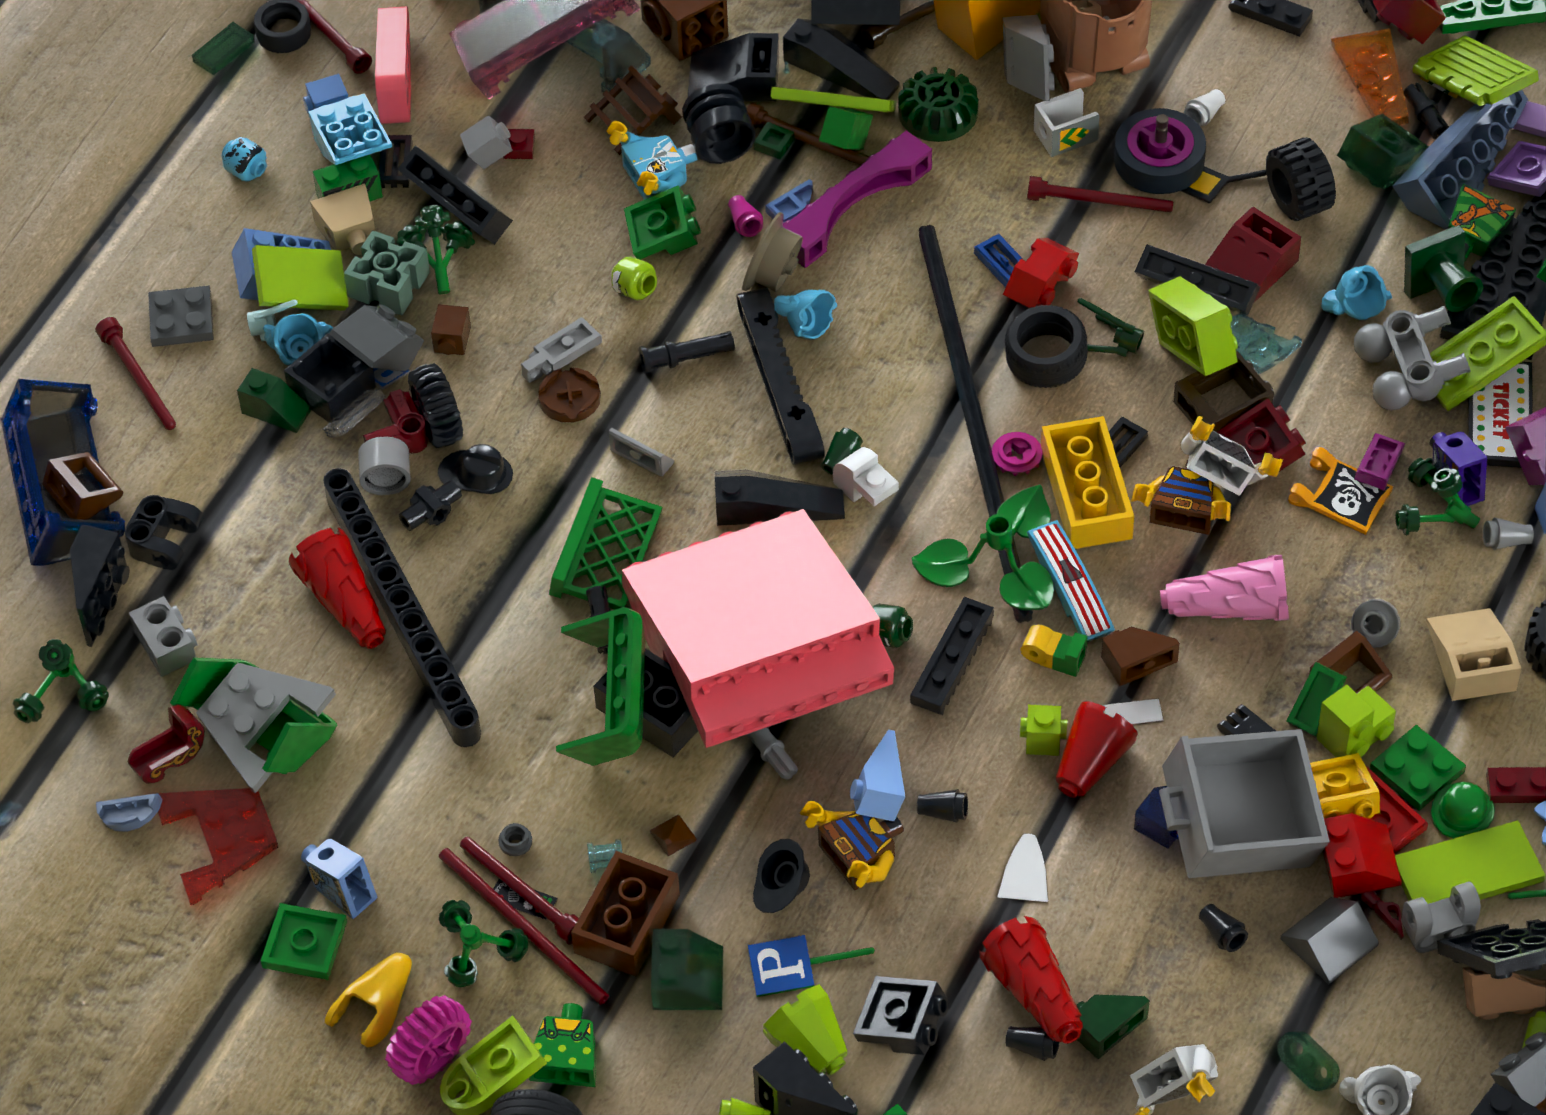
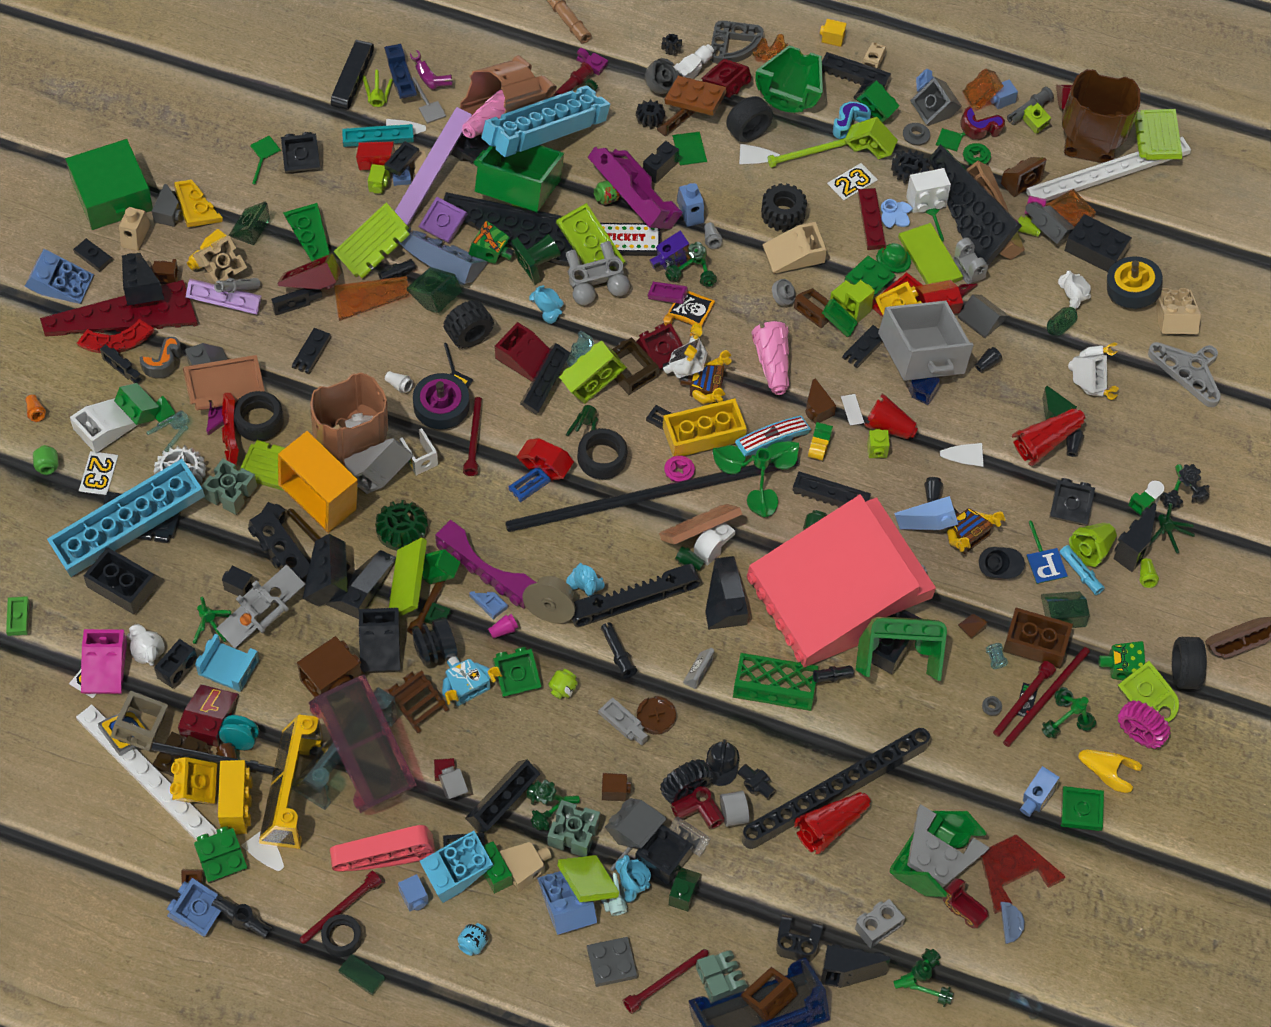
camera: 100 degrees left, 5 degrees up
(135, 425) = (711, 974): none -> sand green legs
(749, 1017) = (1087, 576): none -> medium azure pin
(895, 456) = (700, 523): none -> nougat hinge

